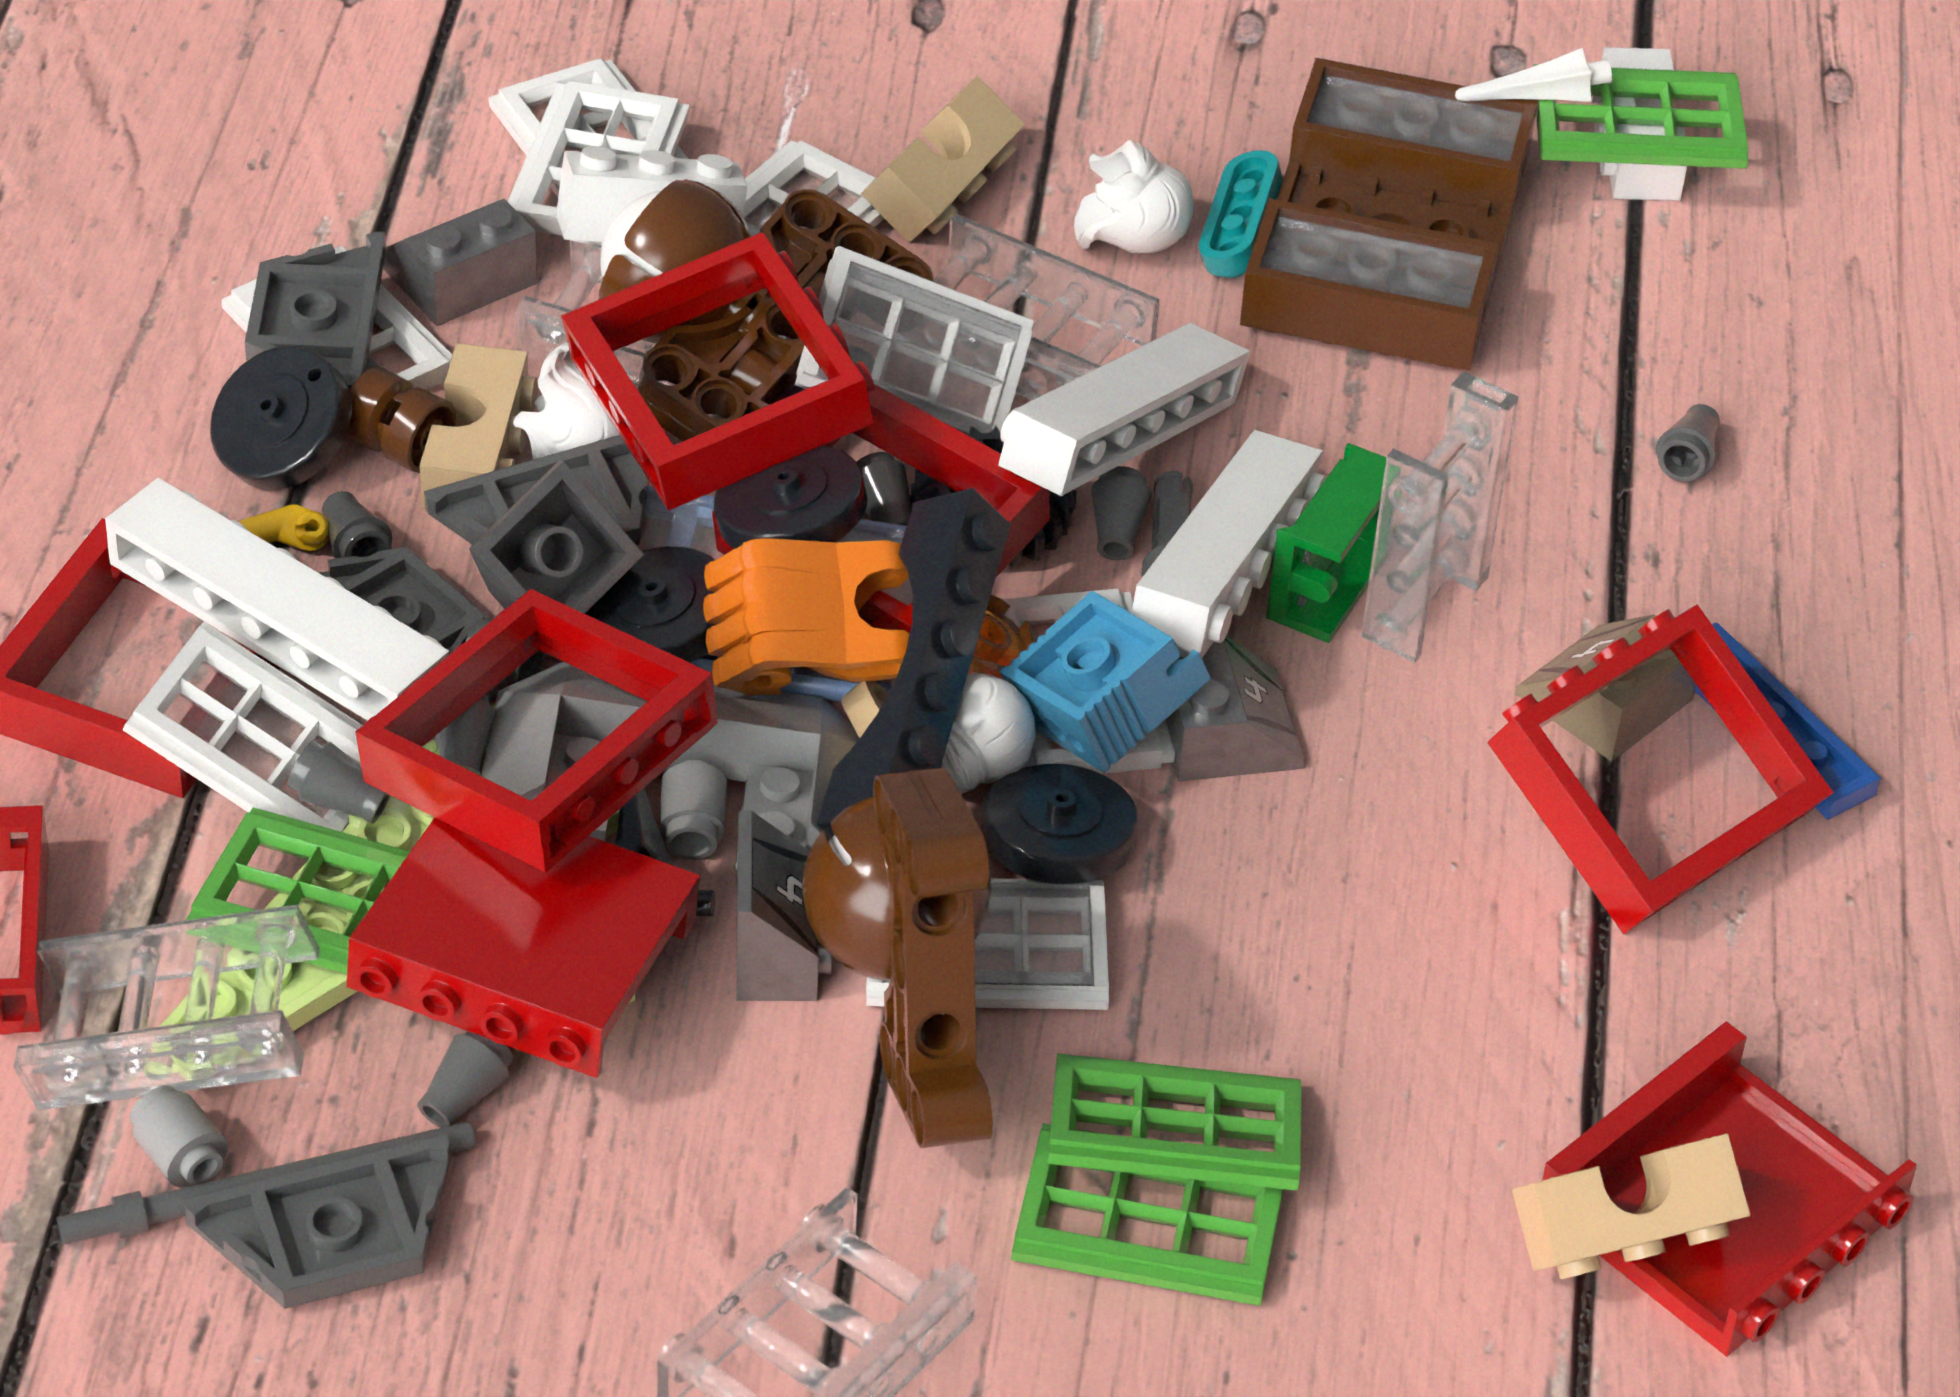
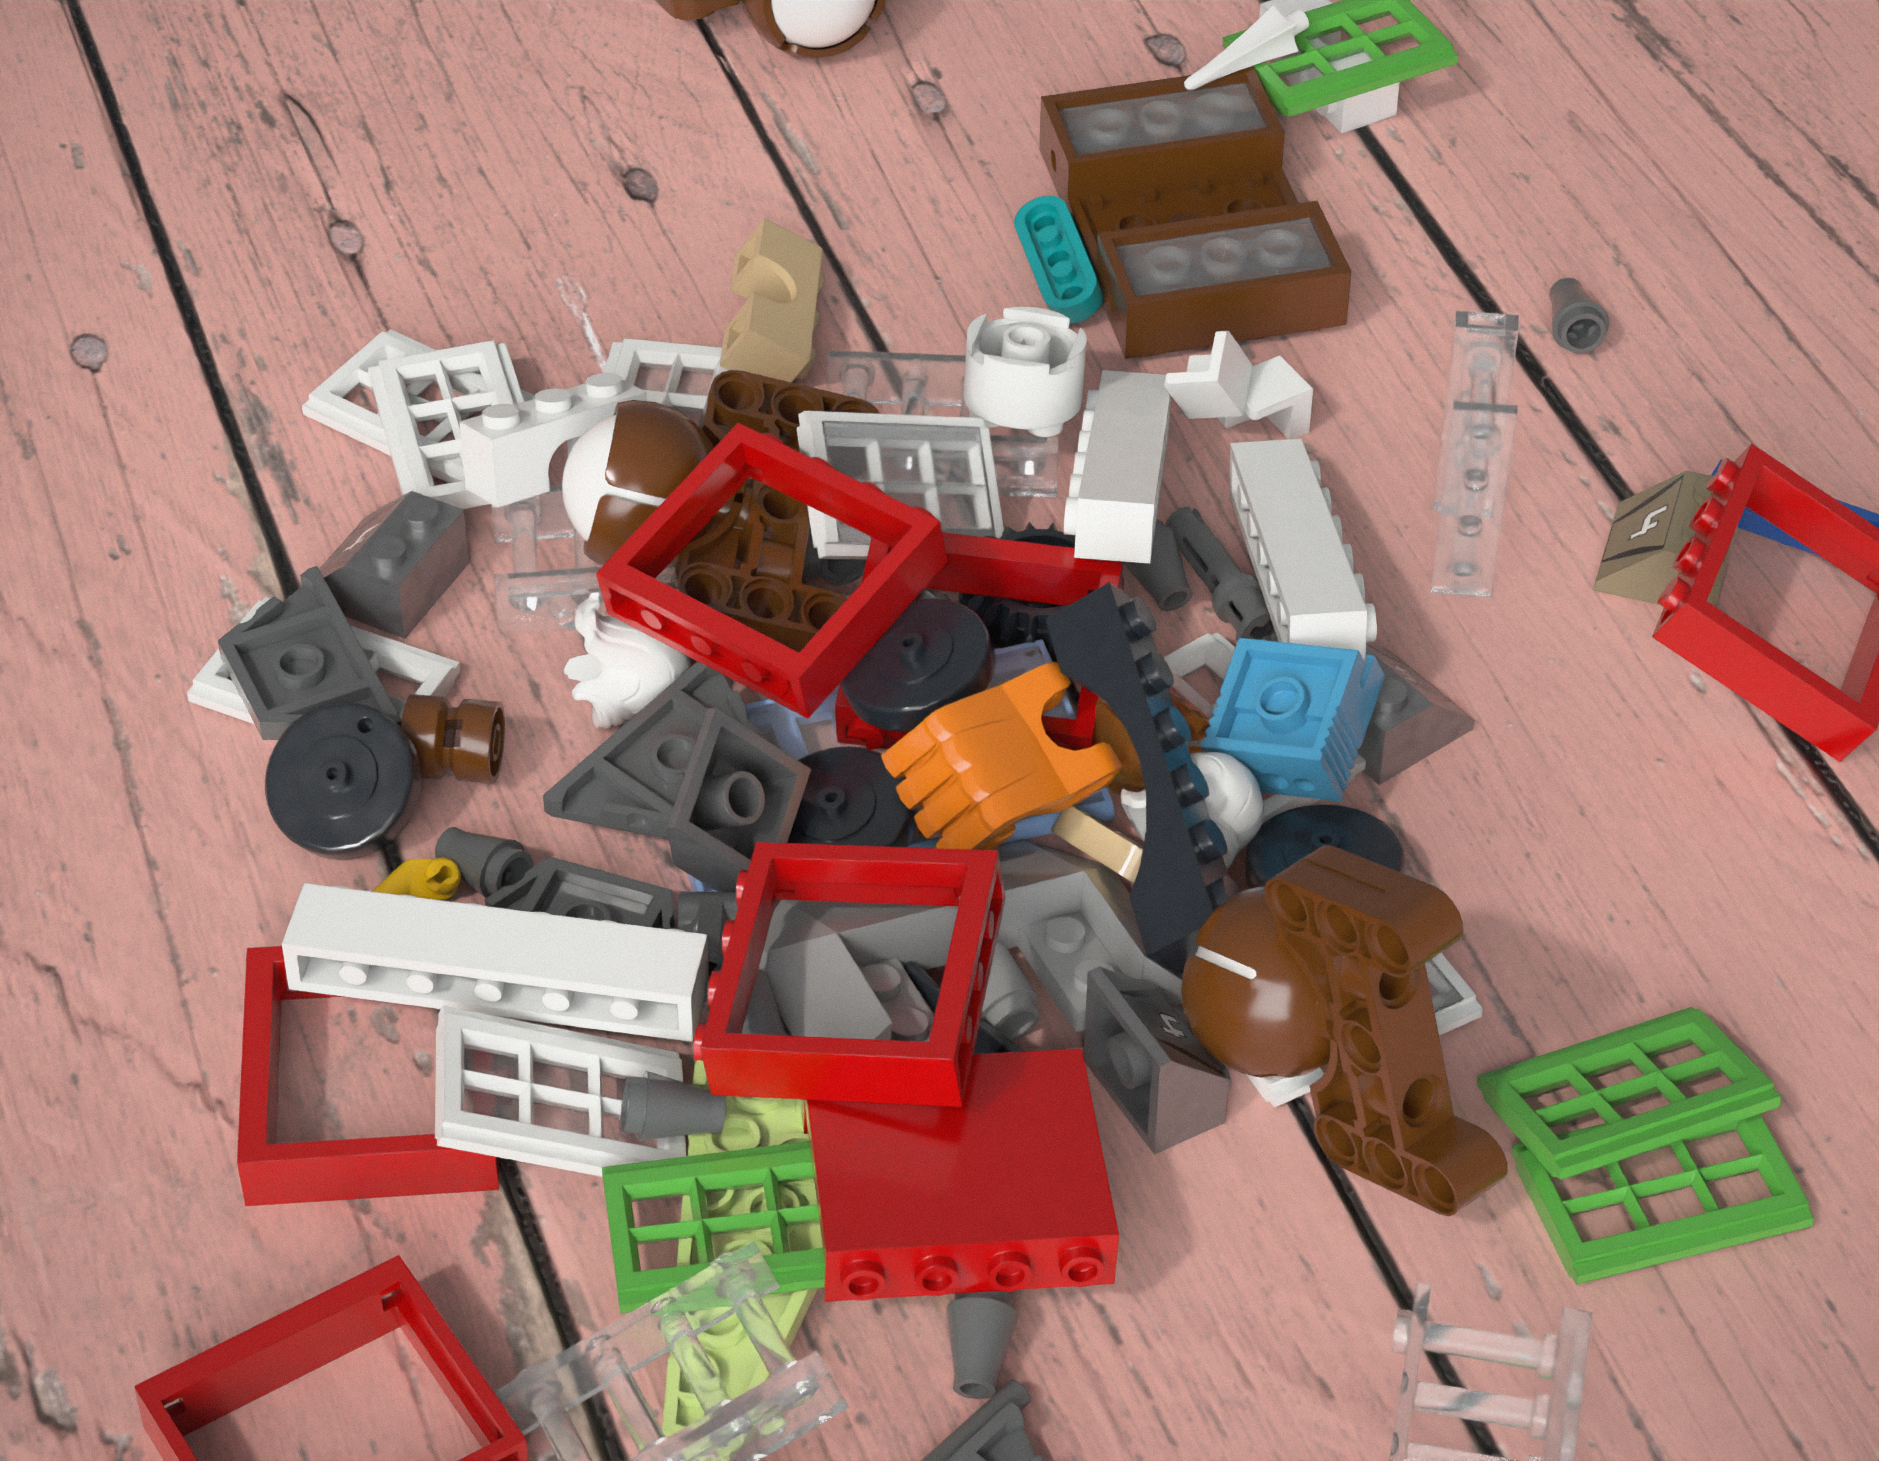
camera: 25 degrees left, 0 degrees up
(488, 392) = (545, 718): tan arch -> none
(1100, 292) = (1024, 370): none -> white brick
(1138, 203) = (966, 280): white hair -> none
(1276, 370) = (1213, 383): none -> white panel
(1328, 552) = (1377, 505): green window -> none
(1330, 397) = (1280, 396): none -> white panel

